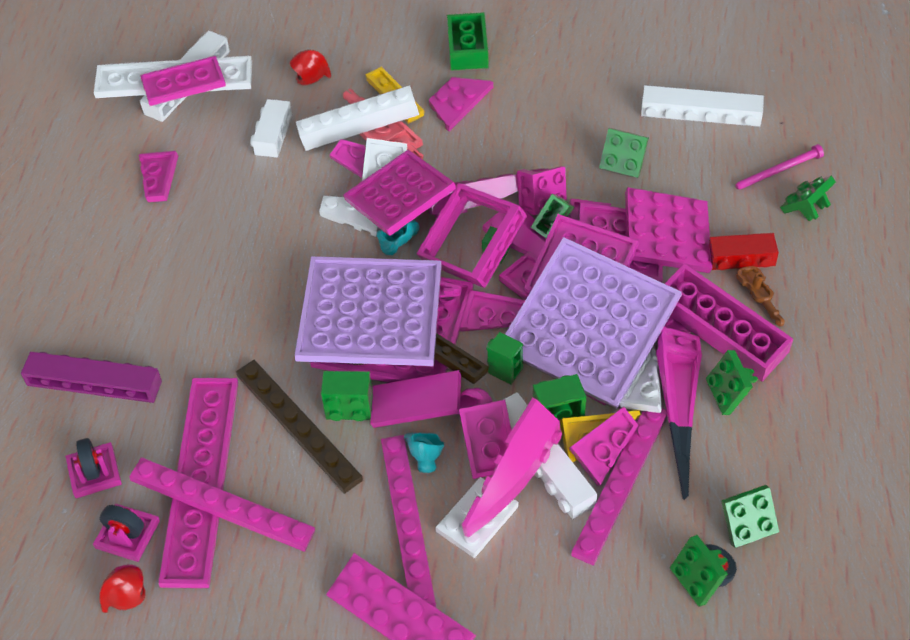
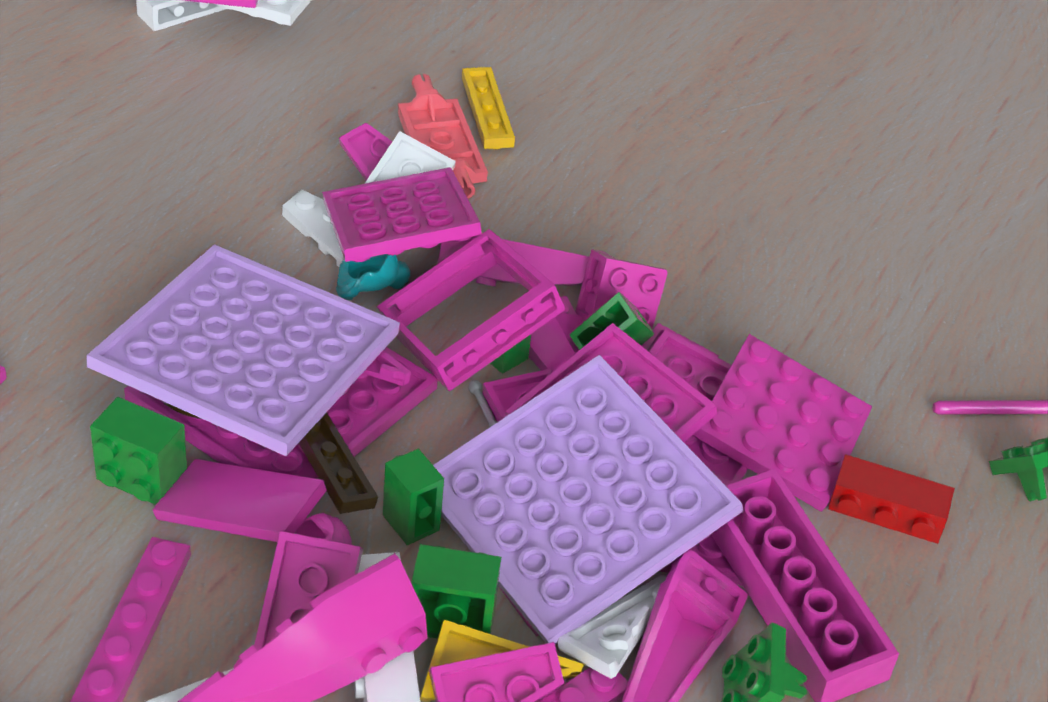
camera: 15 degrees right, 10 degrees down
(158, 174) = (97, 84): dark pink wing -> none
(271, 128) = (289, 85): white brick -> none
(300, 426) = (49, 476): dark brown plate -> none
(310, 66) = (391, 31): red piece -> none
(357, 118) = (410, 108): white brick -> none
(425, 449) = (204, 579): teal hair -> none
(458, 98) = (576, 144): dark pink wing -> none
(467, 41) = (631, 78): green brick -> none
(489, 311) = (432, 425): dark pink wing -> none
(494, 279) = (475, 387): none -> light grey hinge
(623, 152) = (776, 292): green plate -> none
(702, 105) = (938, 279): white brick -> none
(754, 280) = (888, 550): dark orange piece -> none

